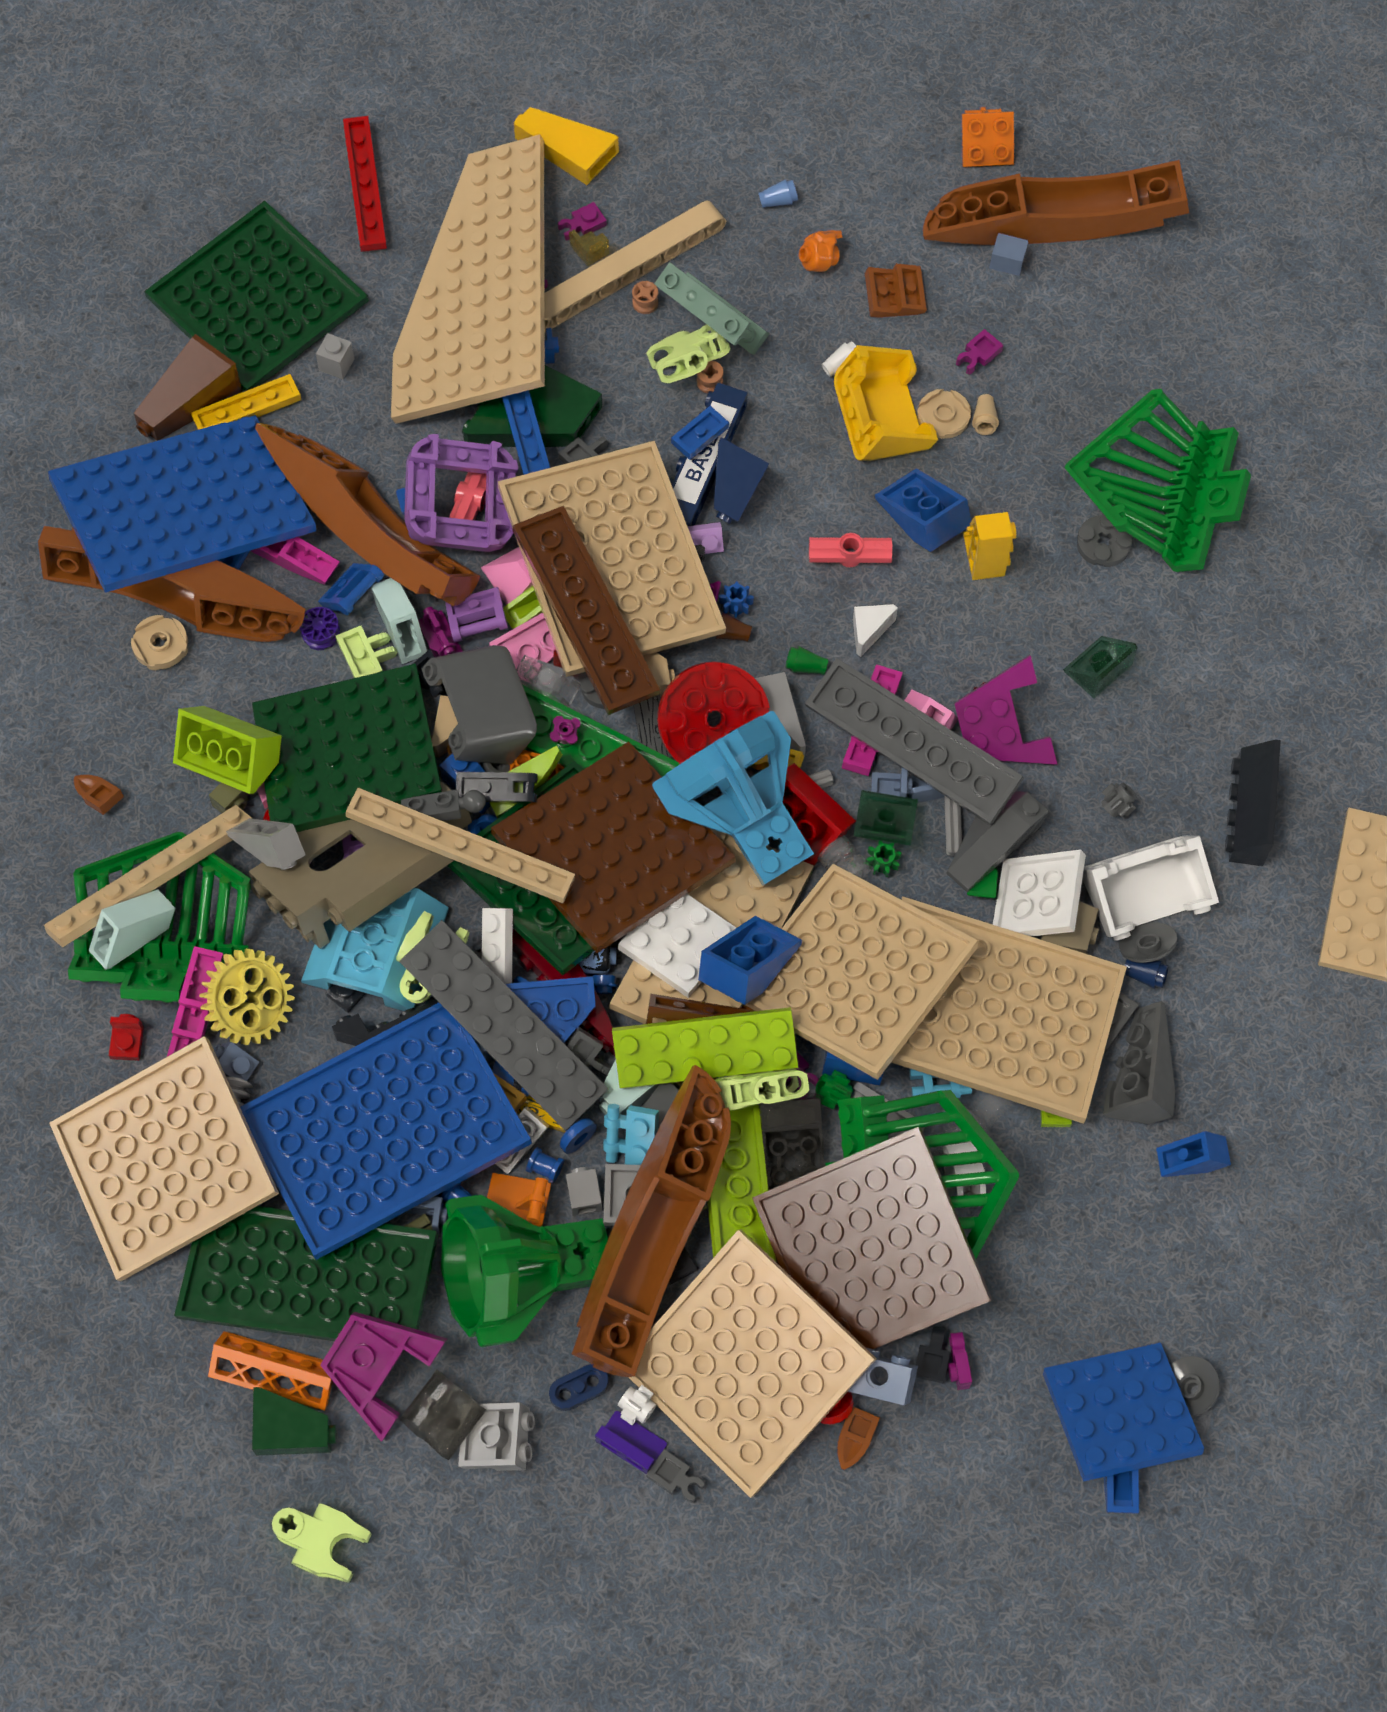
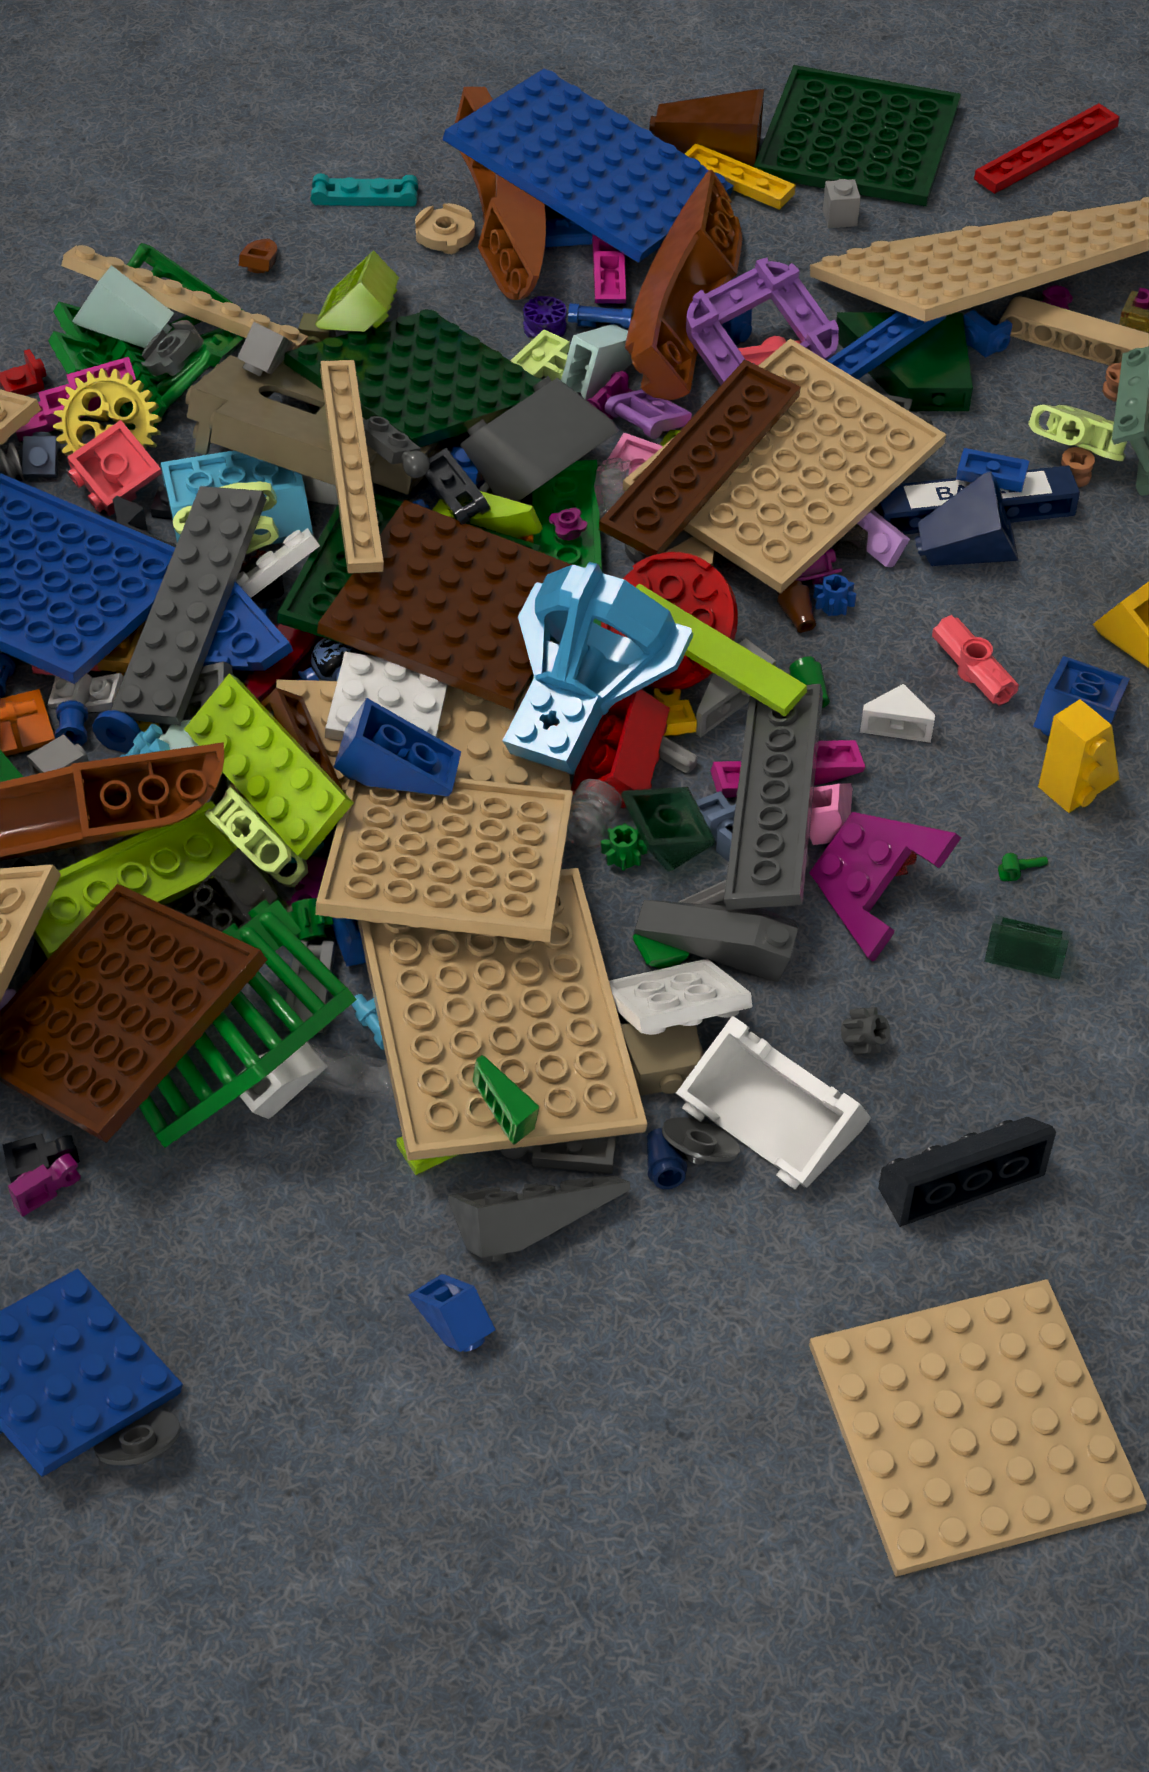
camera: 60 degrees right, 15 degrees down
(68, 677) = (364, 191): none -> teal plate
(218, 911) = (169, 350): none -> dark grey plate
(298, 1016) = (112, 467): none -> coral plate
(783, 701) = (736, 662): none -> lime tile
(1032, 637) = (1011, 866): none -> green hand
(1091, 1039) = (507, 1102): none -> green slope

